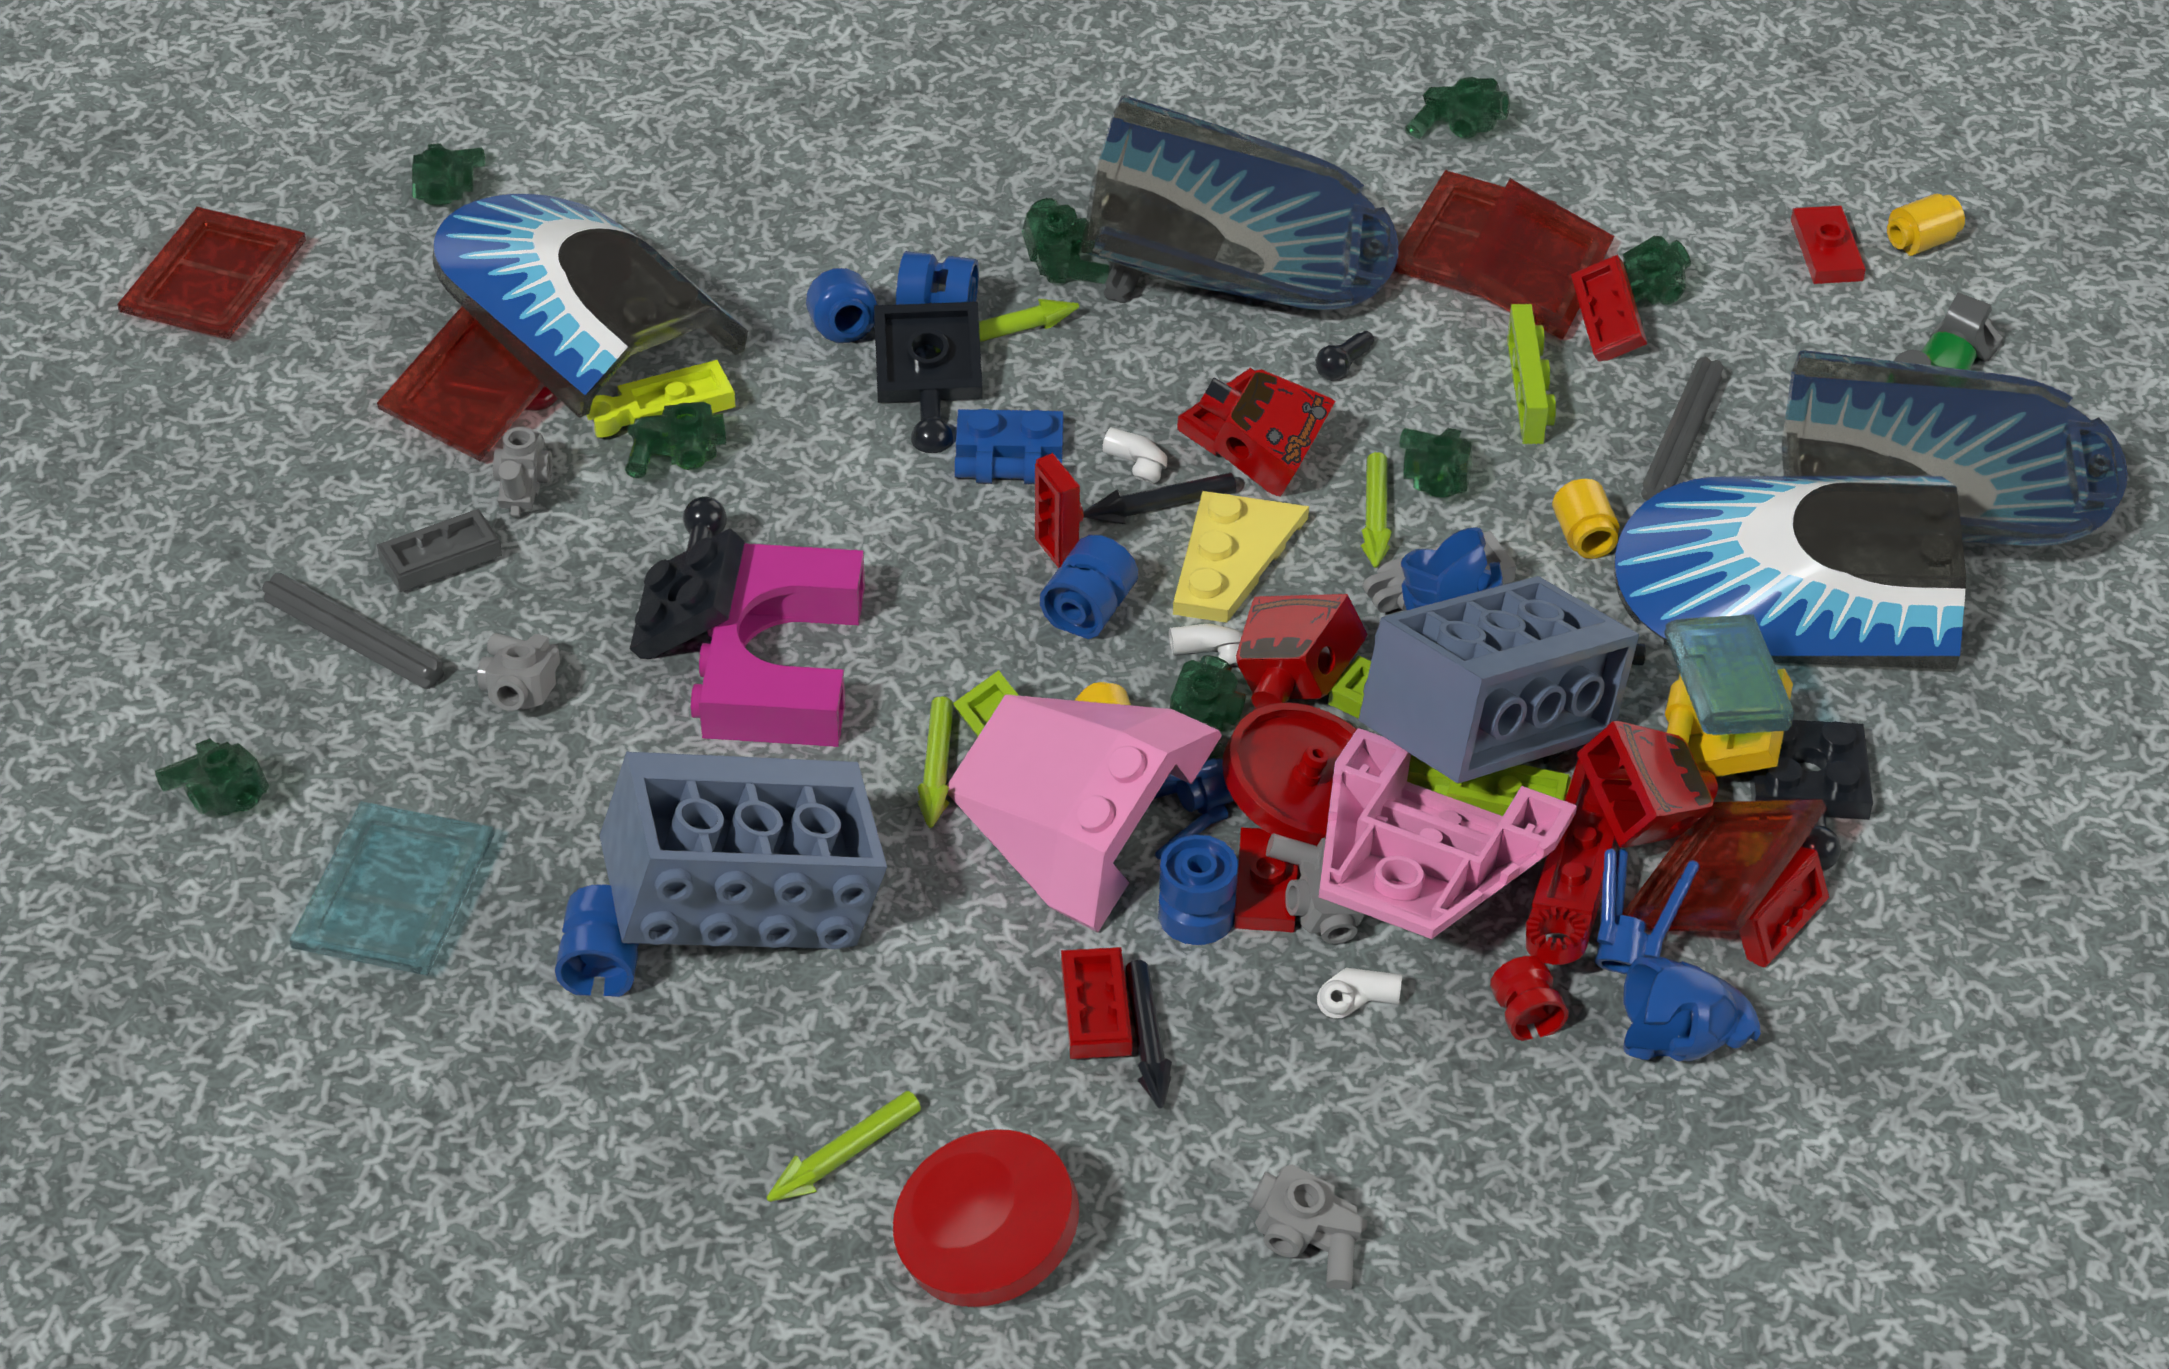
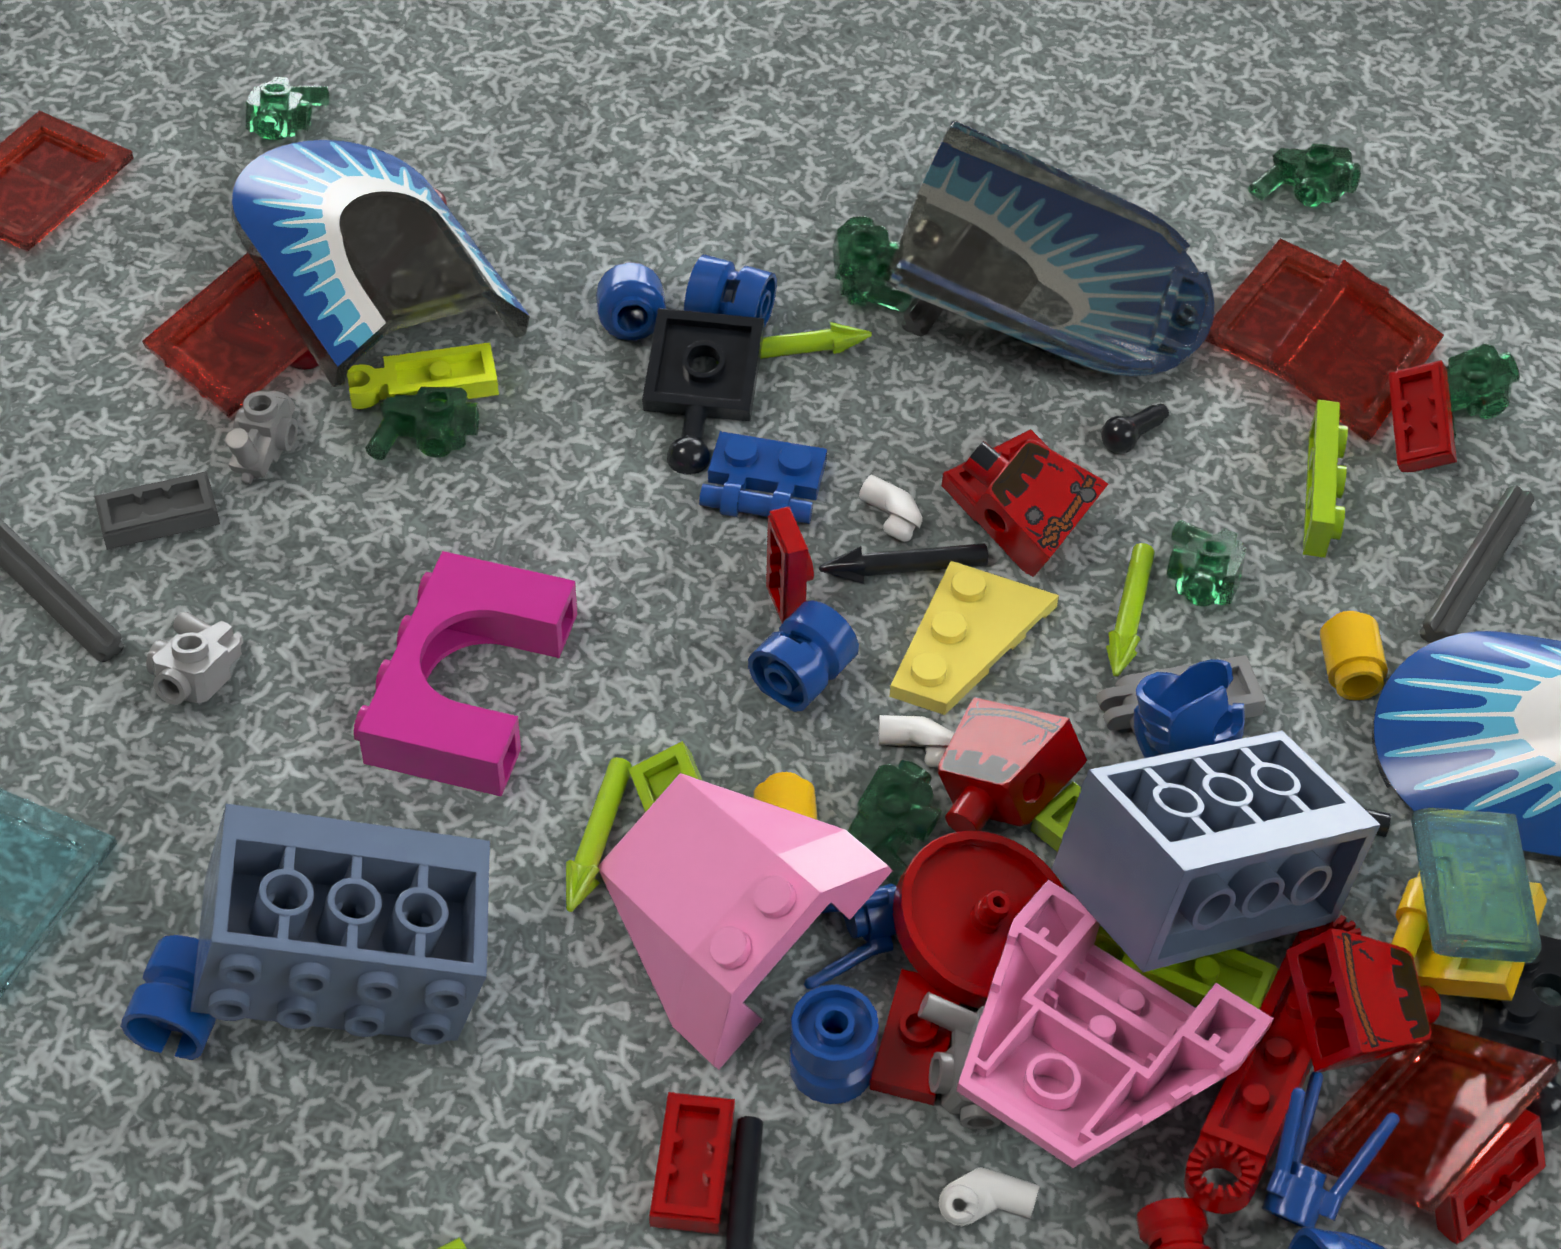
camera: 10 degrees right, 5 degrees up
(692, 588) = (390, 592): black plate -> none

